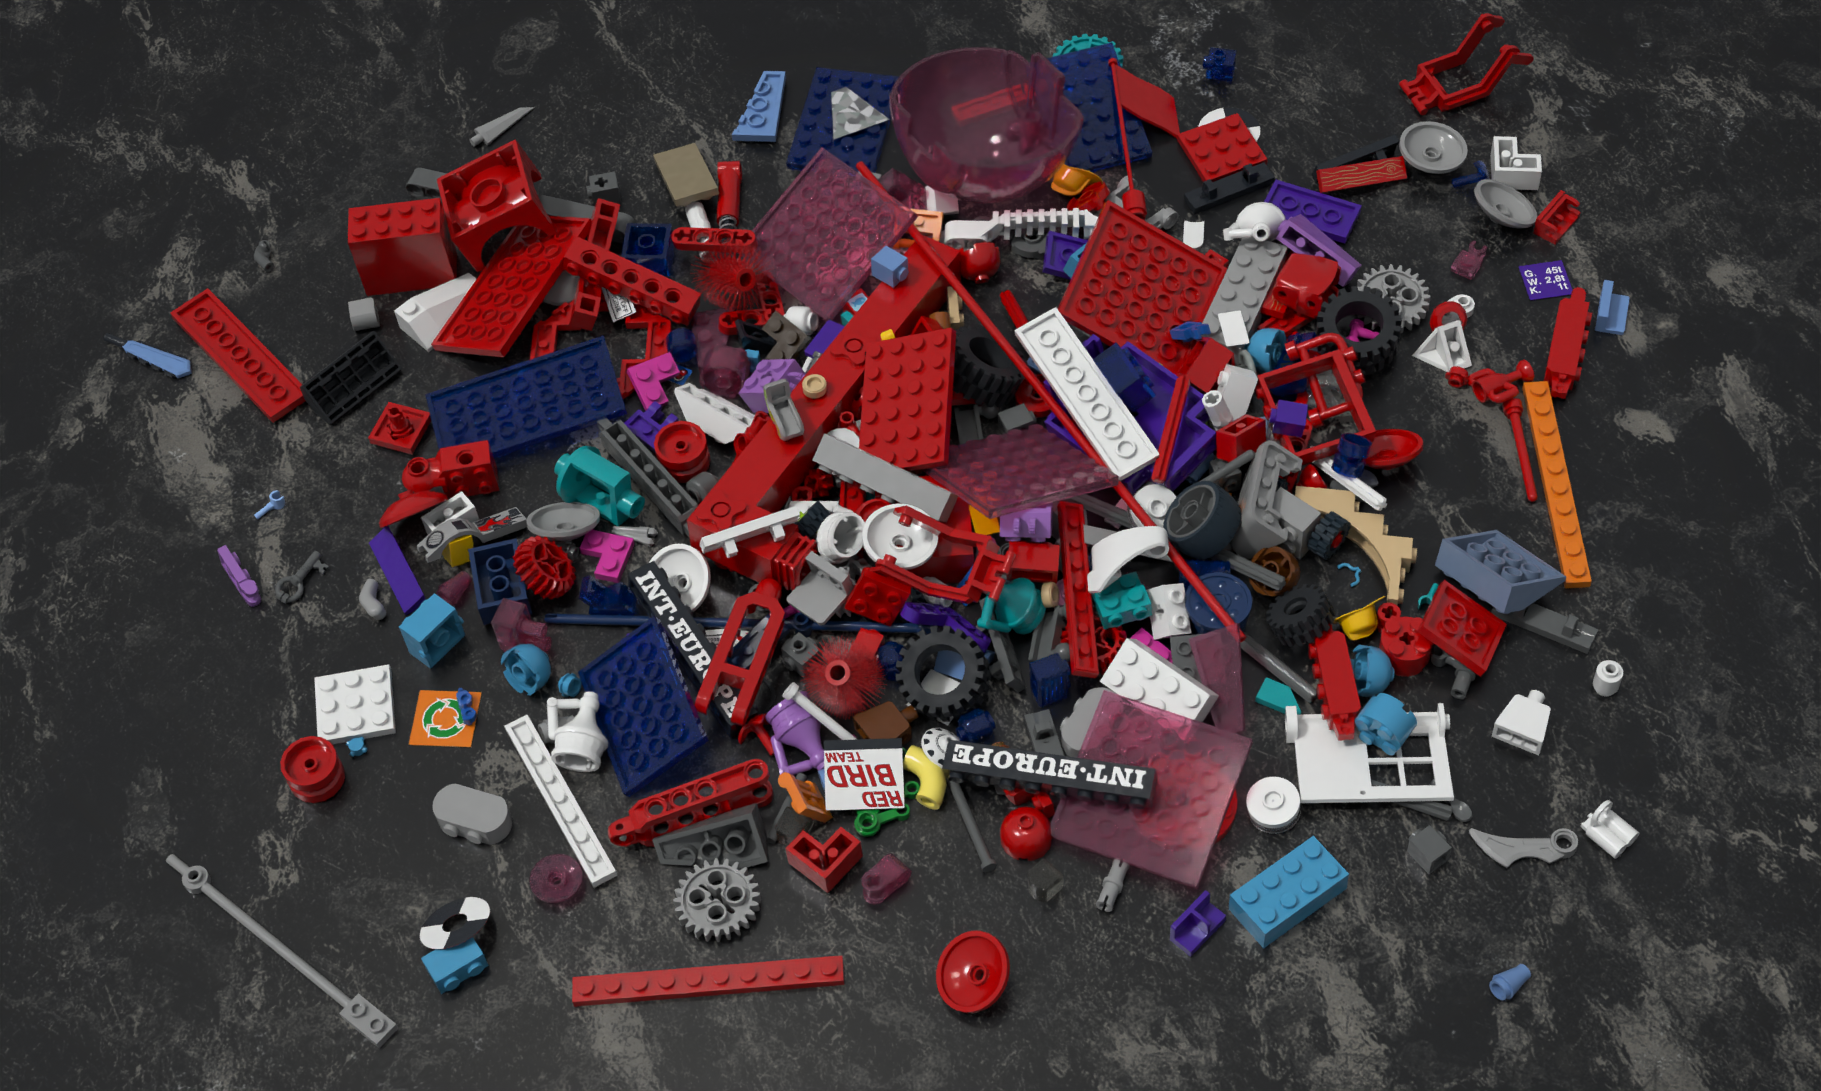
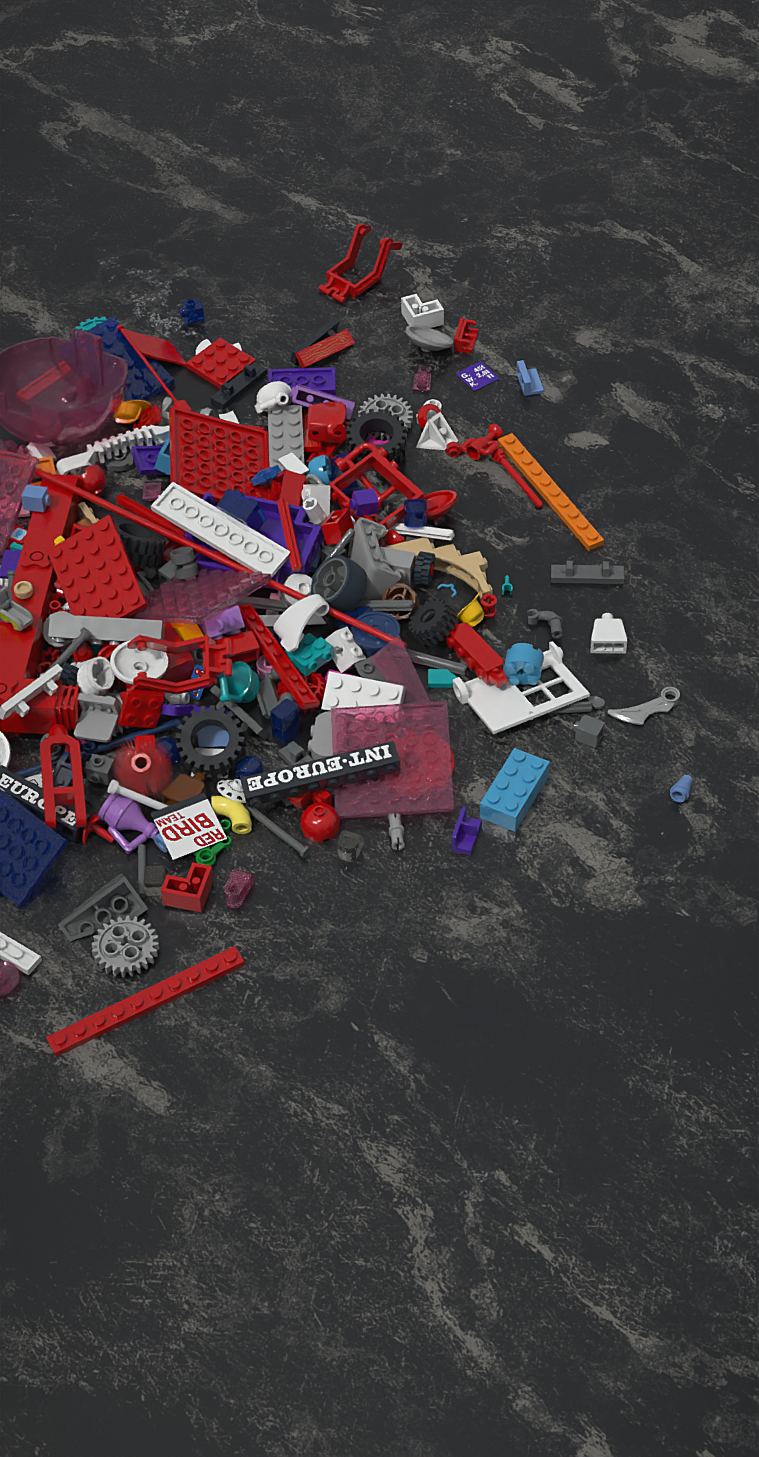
camera: 30 degrees left, 5 degrees down
(731, 791) = (98, 873): red piece -> none
(805, 798) = (156, 856): orange plate -> none
(854, 475) = (85, 633): none -> dark grey bar
(961, 969) = (322, 917): red dish -> none
(1029, 417) = (184, 562): none -> dark grey wheel
(1047, 298) = (151, 491): none -> clear pink plate
(1049, 594) = (258, 667): tan tile -> none
(1273, 805) = (476, 742): white piece -> none
(1371, 670) = (496, 636): dark azure cylinder -> none
(1405, 646) = (509, 617): red brick -> none
(1433, 147) = (364, 318): light grey dish -> none
(1462, 628) = (540, 592): red plate -> none
(1472, 178) = (402, 324): clear blue plant -> none
(1497, 570) = (543, 552): sand blue slope -> none
(1566, 343) = (512, 406): red hinge -> none
(1607, 678) = (645, 591): white brick -> none
(1609, 830) = (693, 678): white piece -> none

